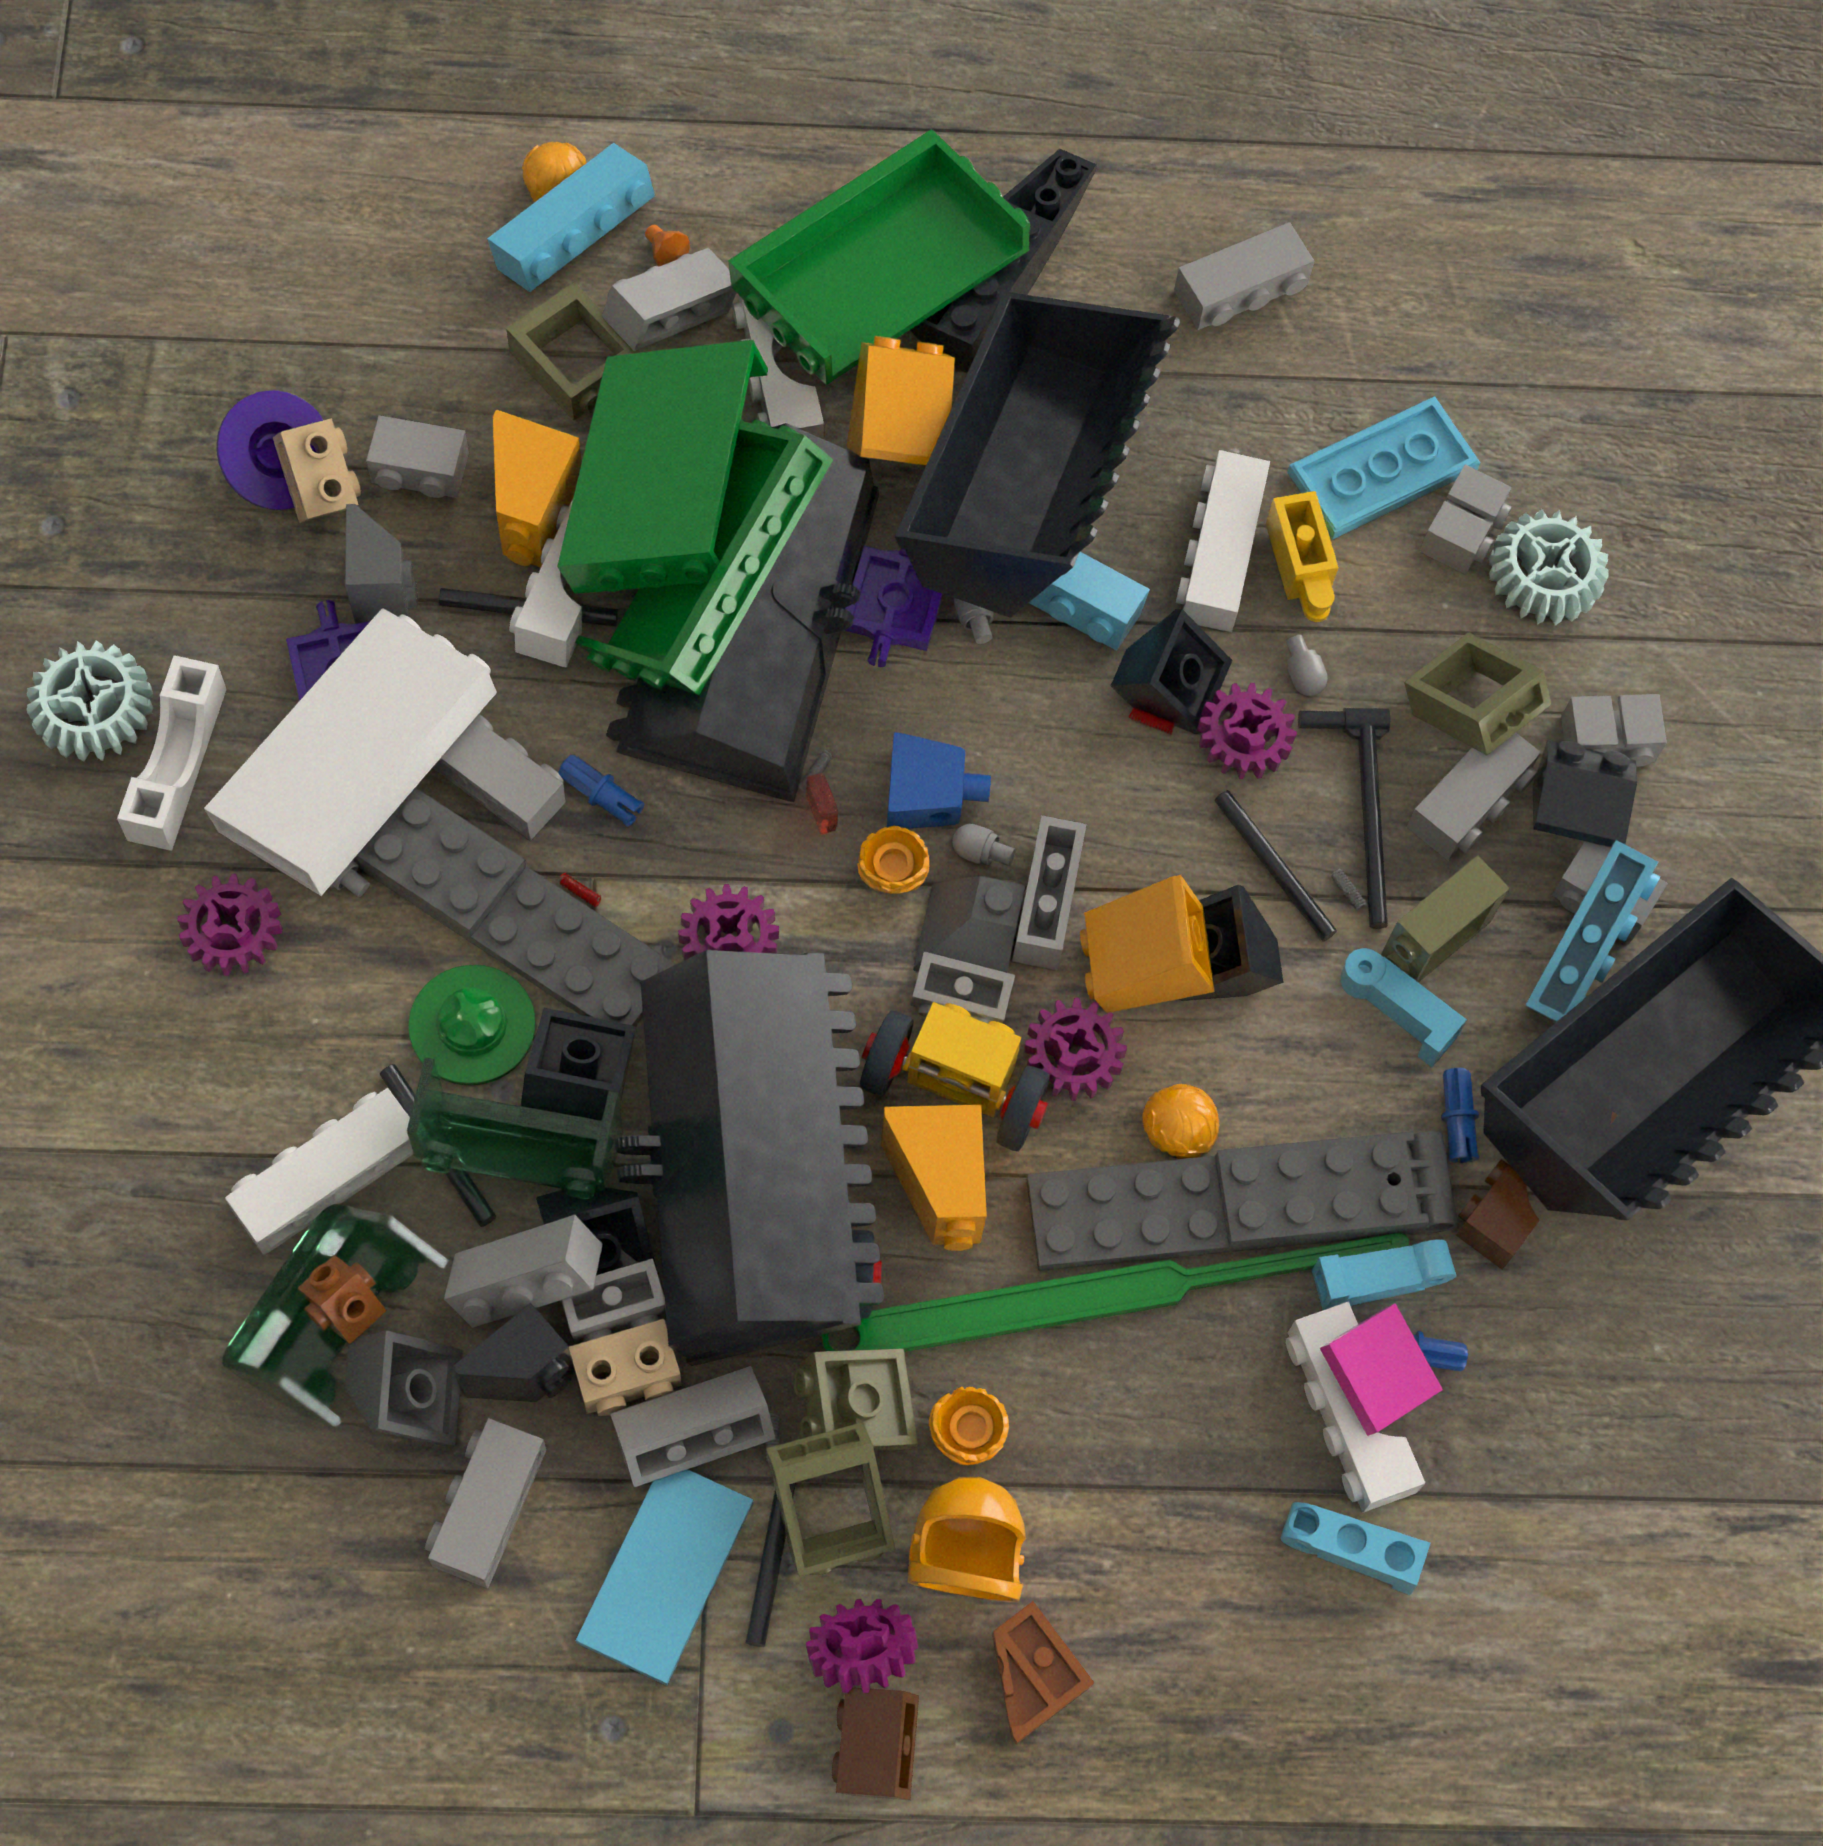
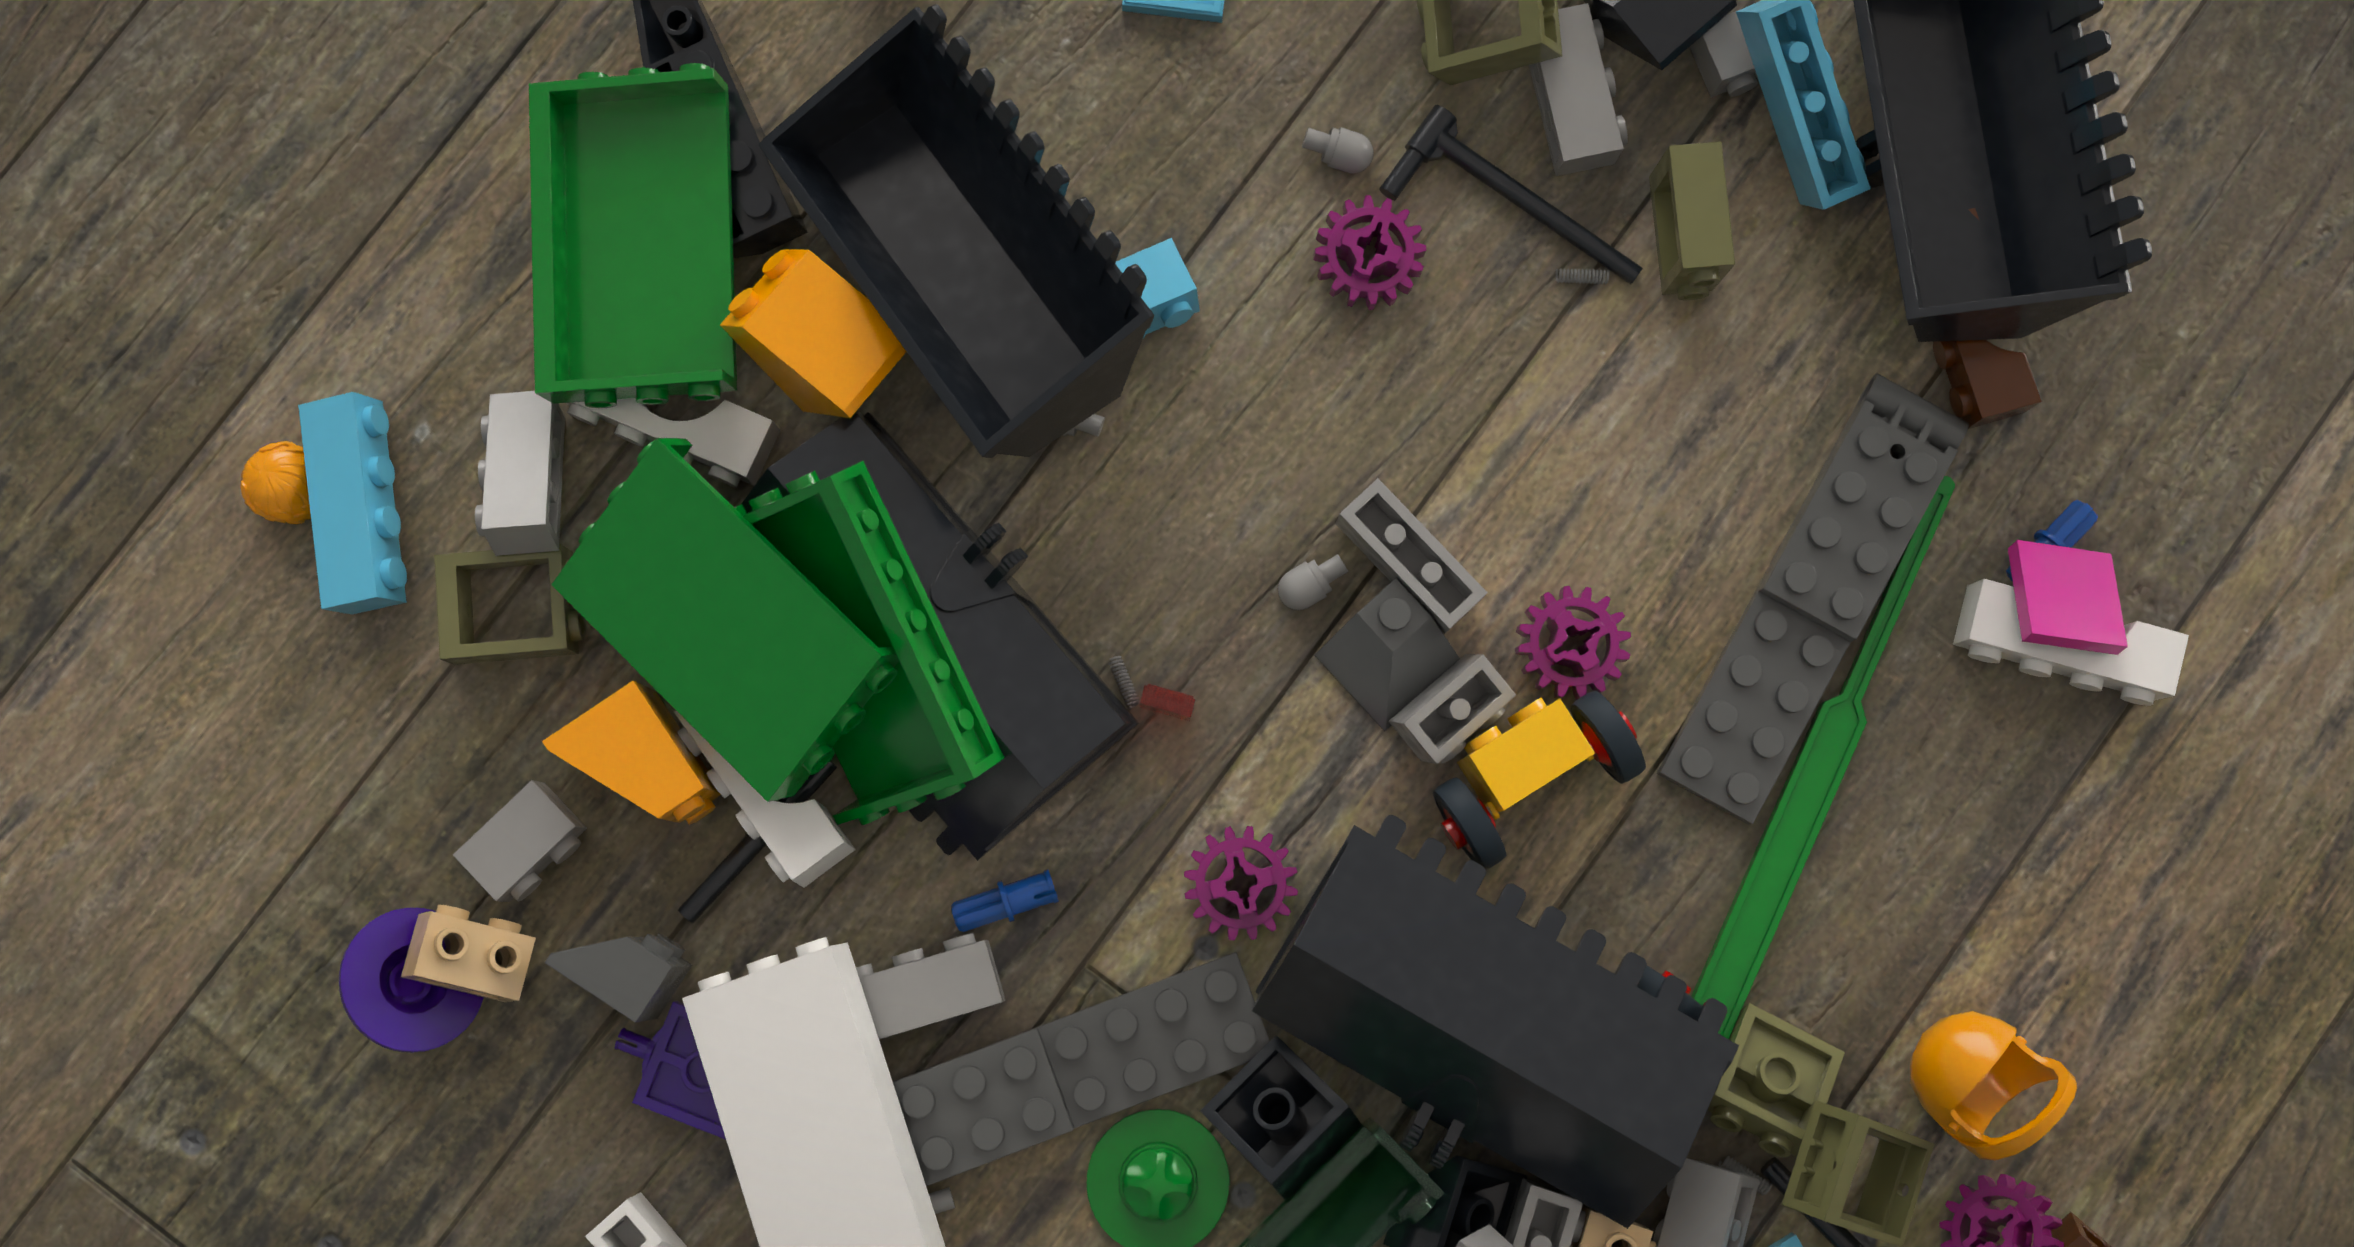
camera: 50 degrees left, 15 degrees up
(577, 889) = (1089, 989): red leg -> none
(667, 244) = (451, 429): orange rock -> none
(892, 603) = (1000, 488): dark purple plate -> none
(893, 860) = (1275, 678): light orange hair -> none
(930, 783) = (1217, 586): blue torso -> none
(940, 1168) = (1619, 851): light orange slope -> none
(969, 1425) = (1861, 996): light orange hair -> none
(1035, 1671) = (2119, 1093): dark orange wing -> none
(1147, 947) = (1533, 512): light orange slope -> none
(1152, 719) = (1294, 331): red leg -> none
(1172, 671) = (1264, 277): black slope -> none
(1181, 1121) = (1702, 596): light orange hair -> none
(1224, 541) = (1160, 126): white brick -> none
(1240, 946) = (1567, 438): black slope -> none
(1275, 865) = (1514, 325): black bar -> none
(1303, 552) = (1232, 64): yellow brick -> none
(1356, 1545) = (2193, 731): medium azure leg -> none
(1382, 1273) = (1966, 524): medium azure leg -> none
(1404, 1001) = (1731, 310): medium azure leg -> none
(1460, 1115) = (1868, 343): blue axle -> none

